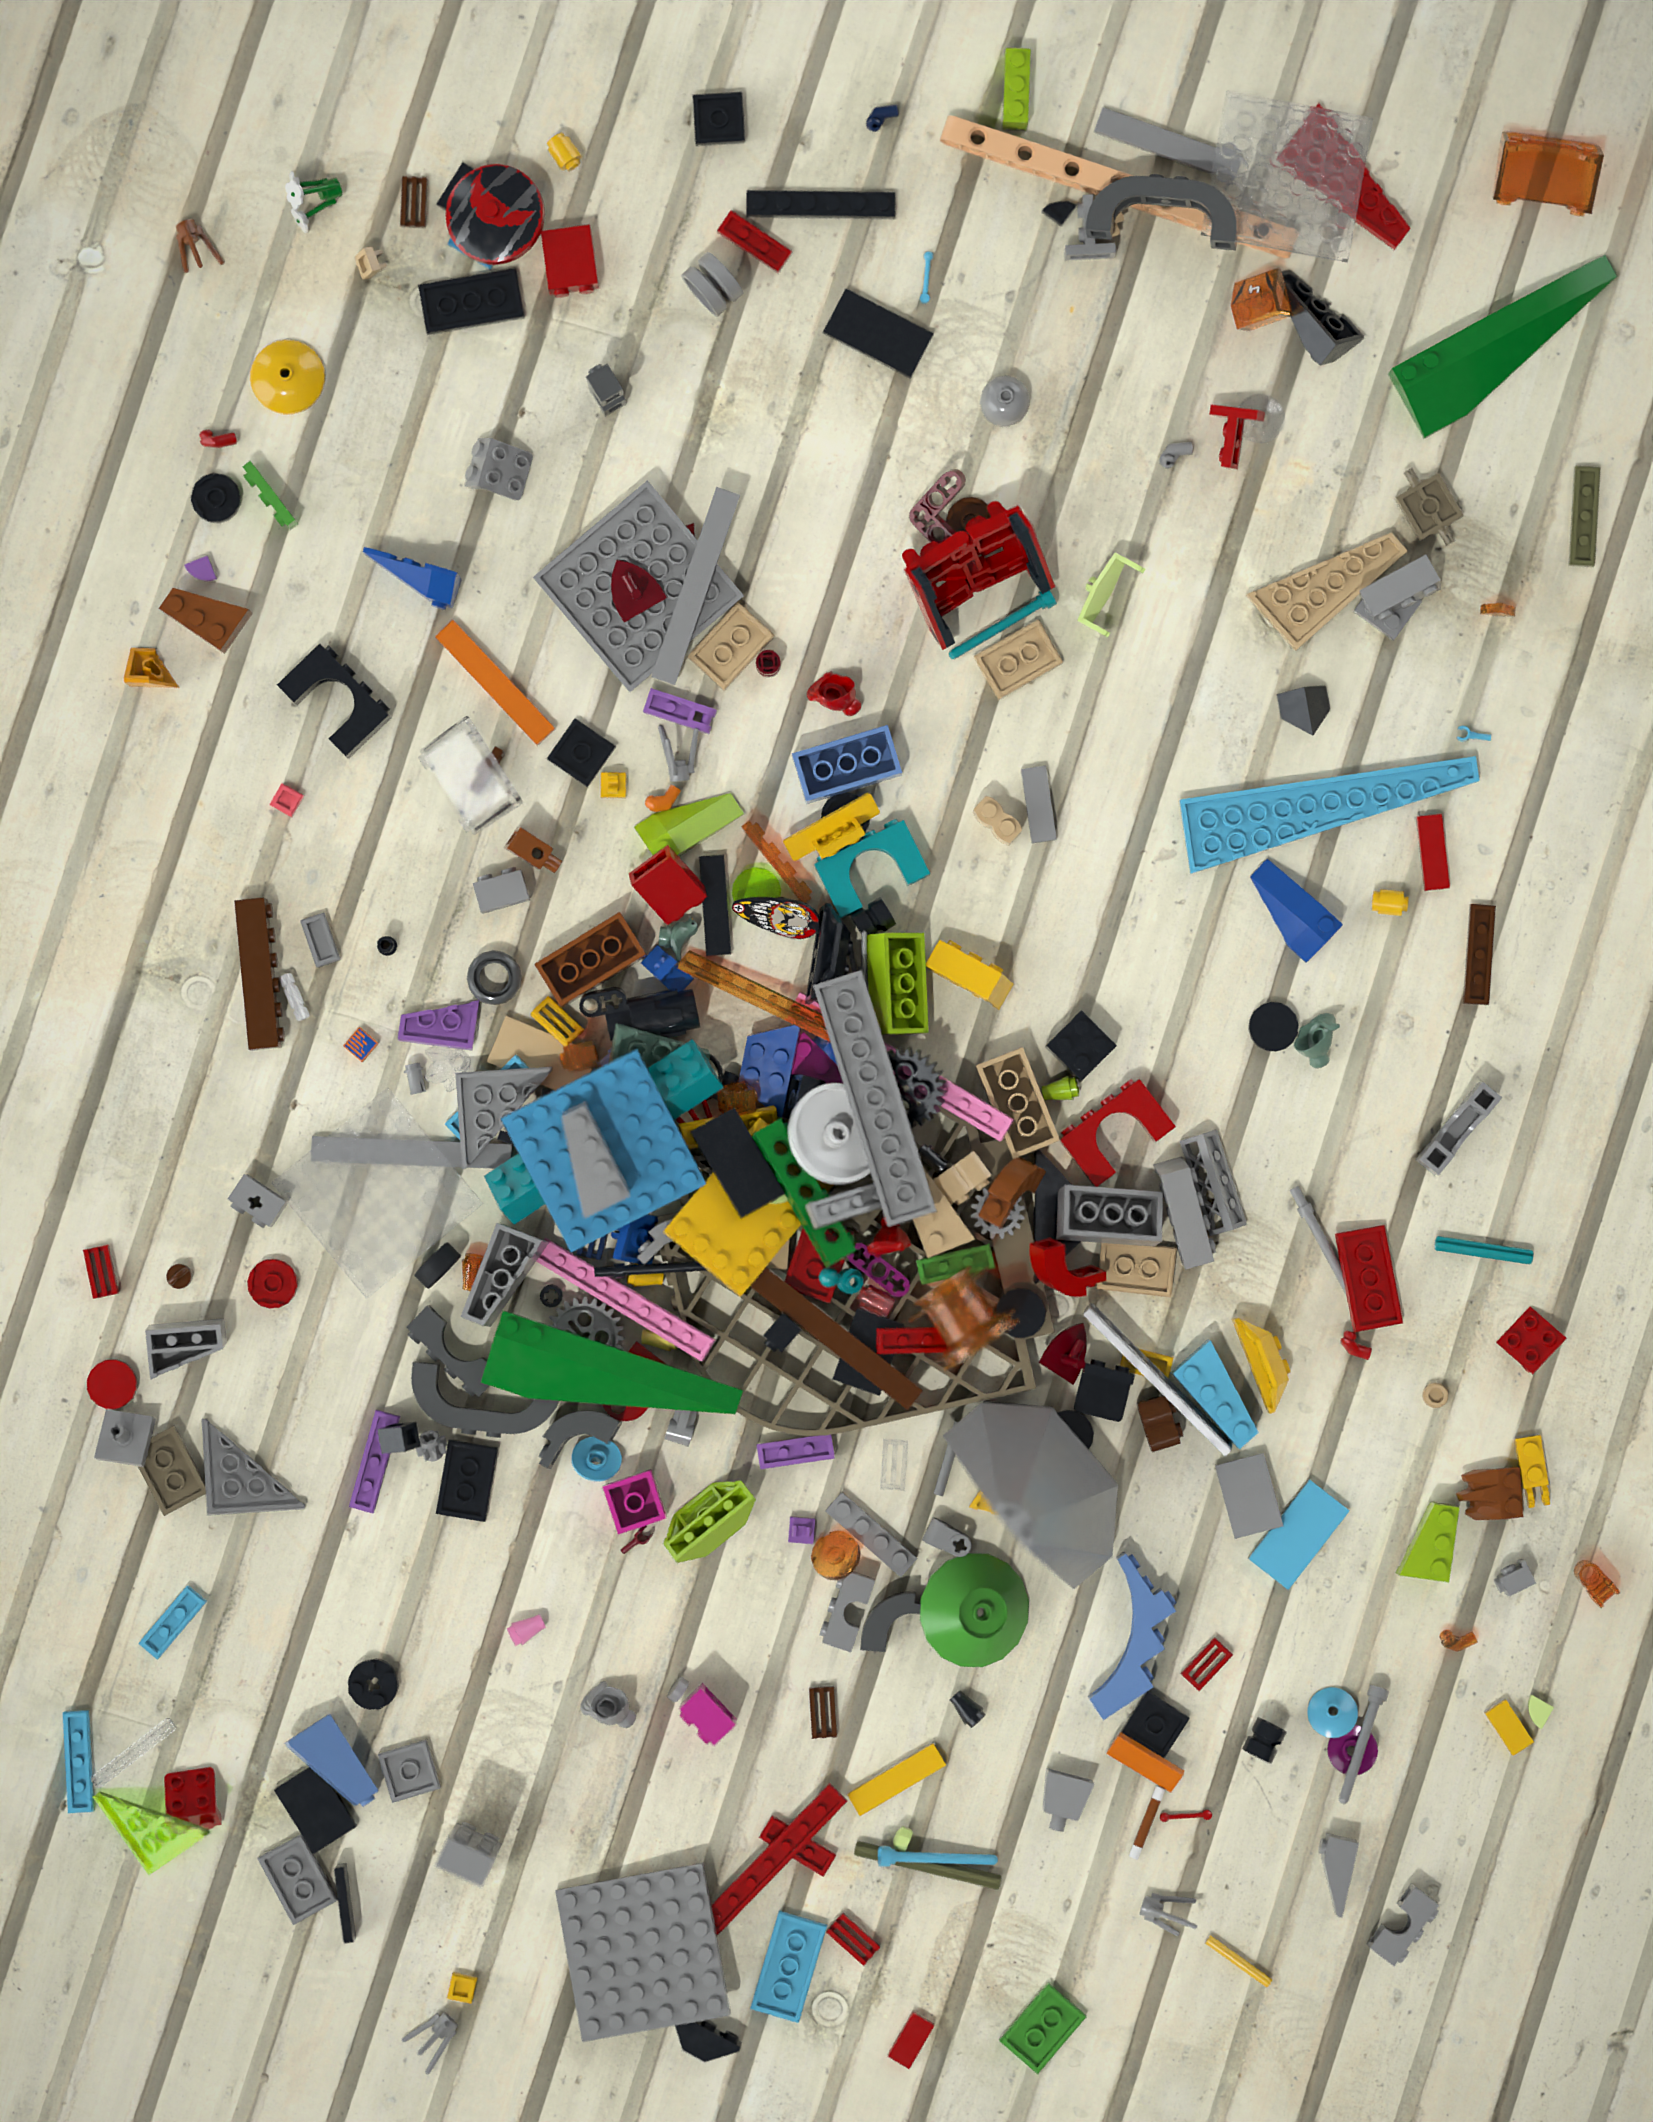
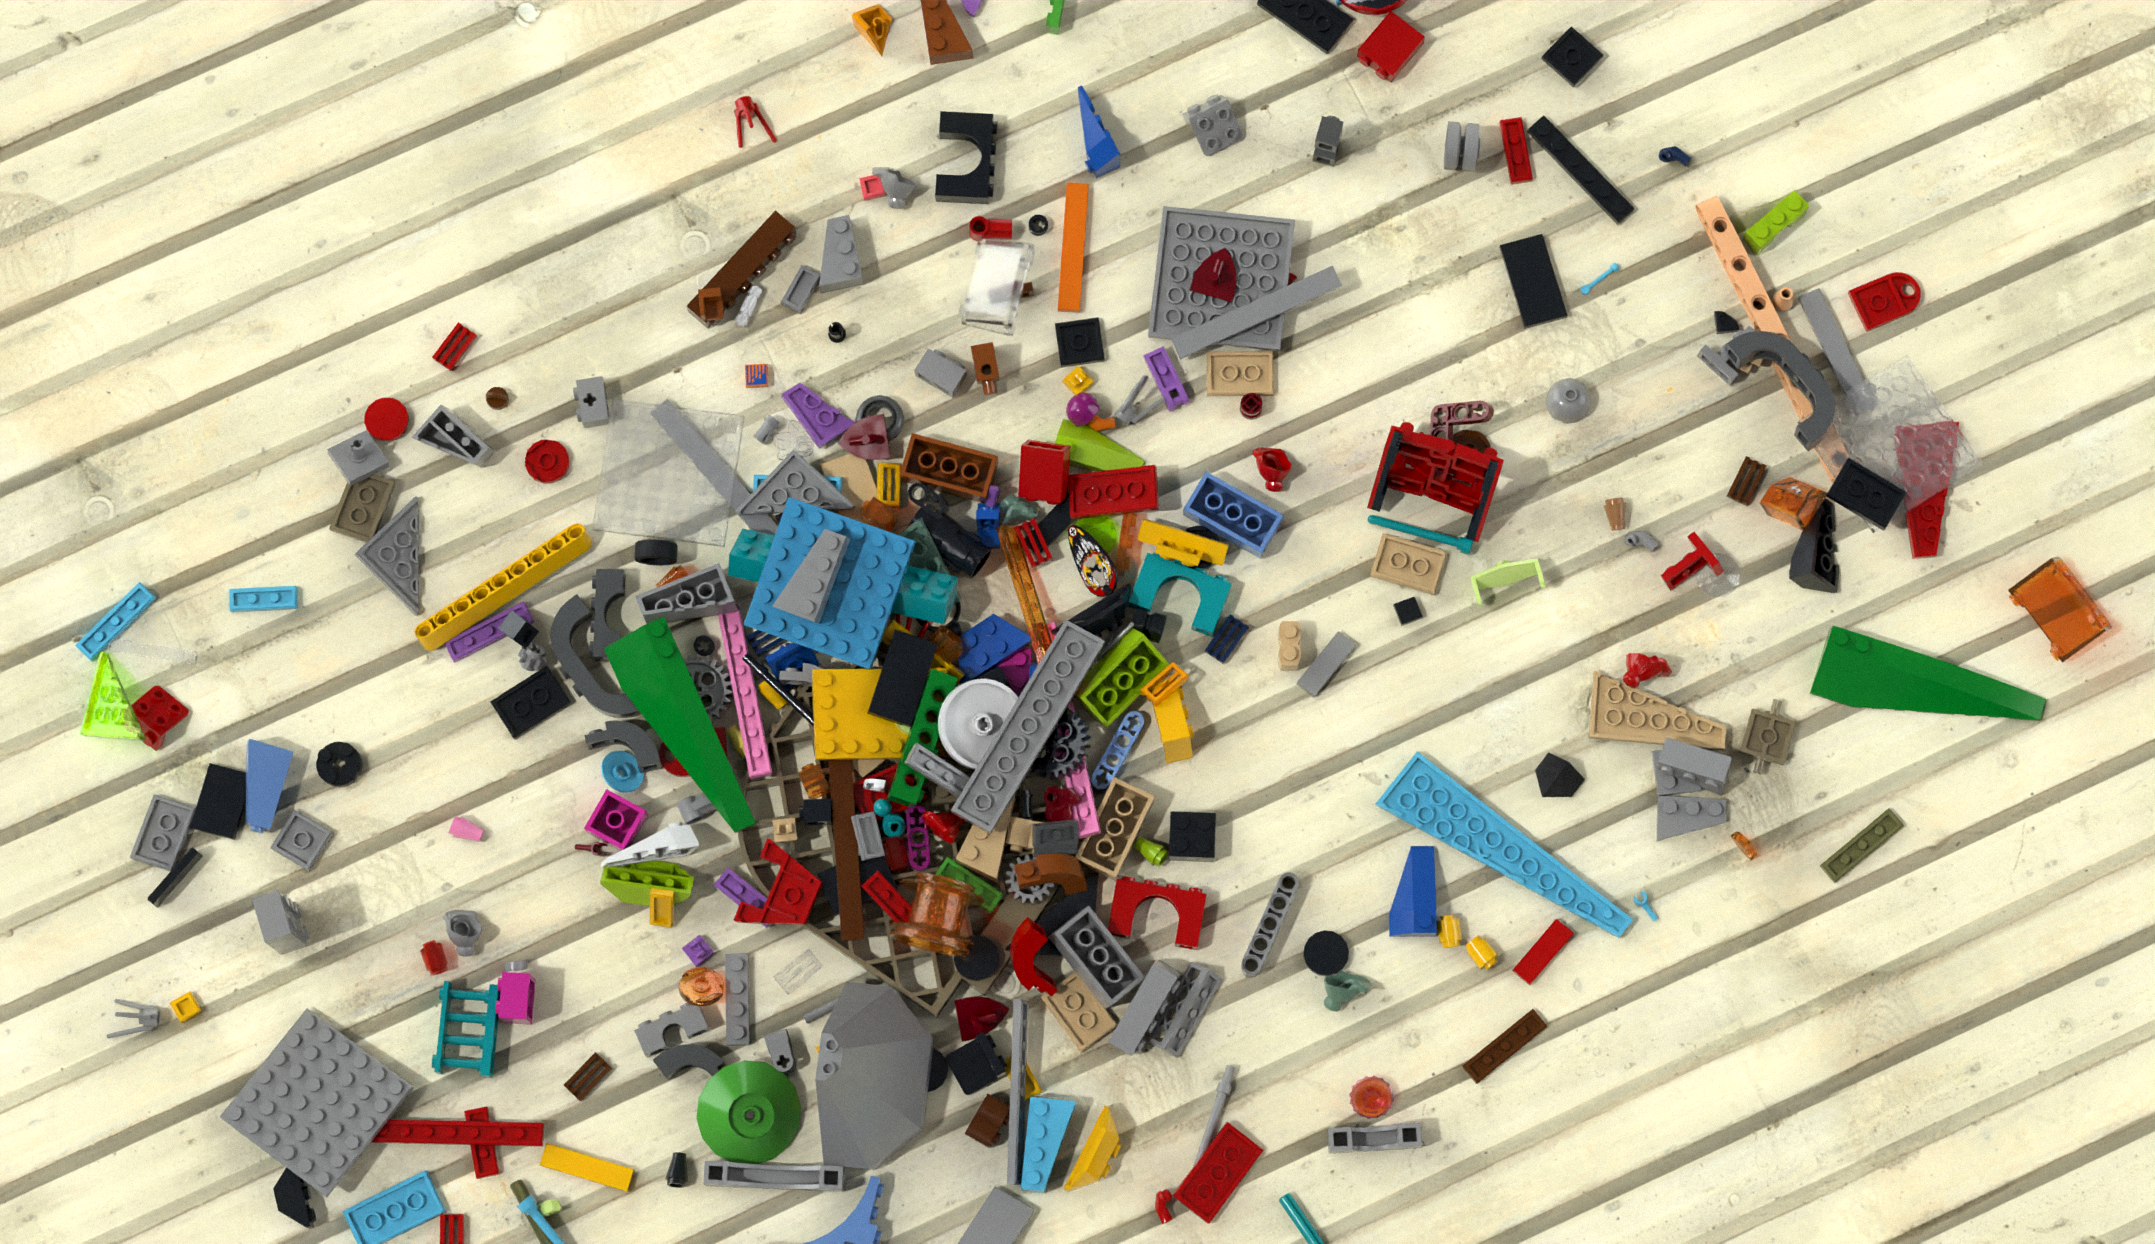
camera: 50 degrees right, 10 degrees down
(120, 843) = (746, 110): none -> red plant
(268, 1028) = (711, 304): none -> dark orange panel
(304, 781) = (894, 185): none -> light grey hair
(324, 882) = (840, 257): none -> light grey wedge
(349, 1416) = (503, 587): none -> yellow beam
(419, 734) = (994, 229): none -> red piece
(450, 686) = (1043, 221): none -> black bush
(502, 1003) = (867, 438): none -> dark red shield
(609, 1750) = (434, 957): none -> clear red brick
(641, 804) = (1081, 408): none -> magenta hair
(647, 945) = (993, 495): none -> medium lavender tile
(690, 1478) = (671, 842): none -> white wedge
(697, 941) = (1026, 525): none -> red tile
(719, 1770) = (486, 1042): none -> teal fence
(737, 844) = (1113, 492): none -> red tile
(741, 1529) = (661, 907): none -> yellow tile
(753, 1312) = (814, 781): none -> clear orange brick
(771, 1372) = (785, 830): none -> tan tile
(803, 1266) = (875, 785): none -> white tile
(831, 1417) = (790, 896): none -> red wing
(841, 1310) = (868, 836): none -> light grey tile
(939, 844) = (1237, 623): none -> dark blue tile
(946, 952) = (1165, 684): none -> light orange tile
(955, 1039) = (1115, 749): none -> light blue beam
(962, 1131) = (1060, 807): none -> dark red plate
(986, 1161) = (1055, 837): none -> dark grey plate
(1044, 1636) = (774, 1176): none -> light grey arch
(1056, 697) = (1407, 611): none -> black tile
(1084, 150) = (1782, 303): none -> light nougat cone
(1134, 452) = (1615, 511): none -> medium nougat cone
(1161, 63) = (1883, 299): none -> red tile
(1198, 301) = (1754, 464): none -> reddish brown tile
(1219, 1059) = (1277, 916): none -> light grey beam
(1283, 553) = (1644, 668): none -> red hair
(1313, 237) = (1866, 494): none -> black tile
(1348, 912) = (1449, 931): none -> yellow brick
(1422, 1099) = (1371, 1097): none -> piece
(1430, 632) = (1687, 814): none -> light grey wing

